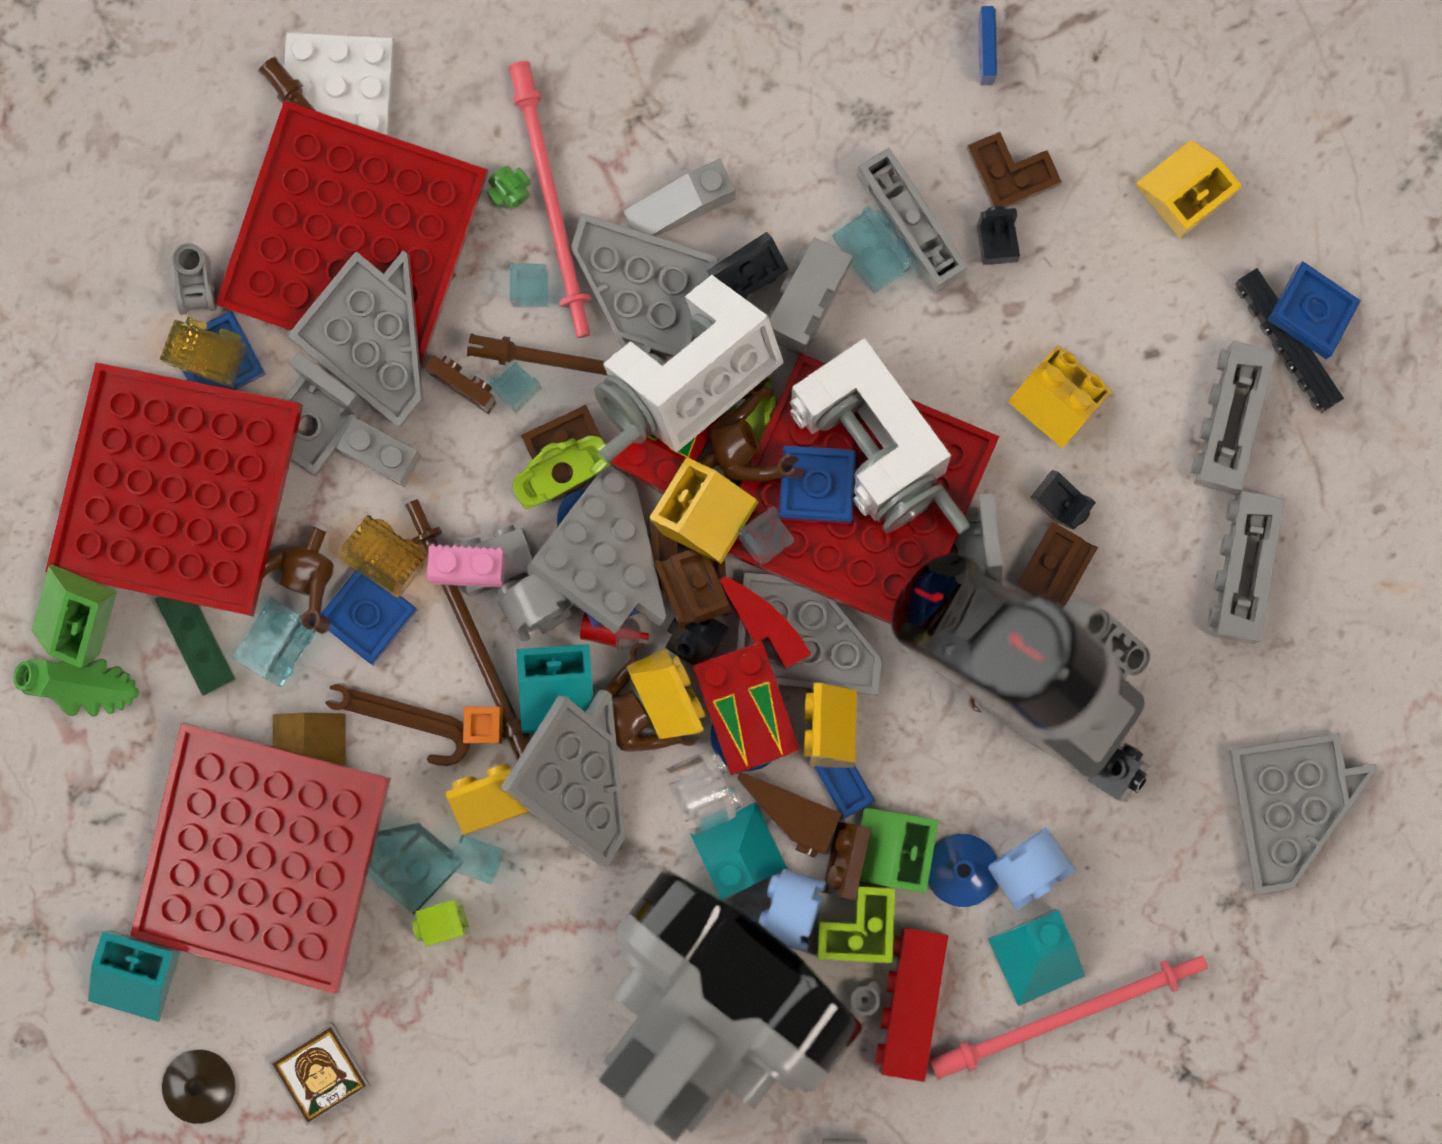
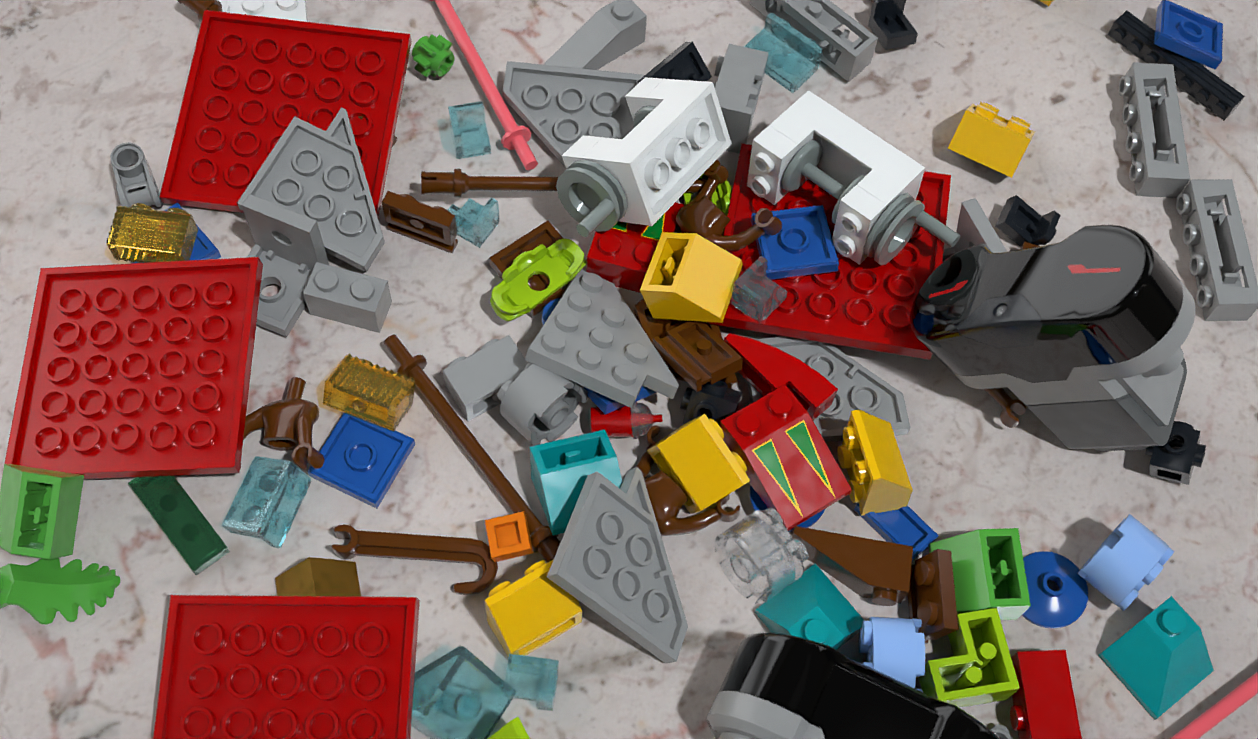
camera: 20 degrees left, 20 degrees down
(466, 566) = (460, 371): bright pink brick -> none

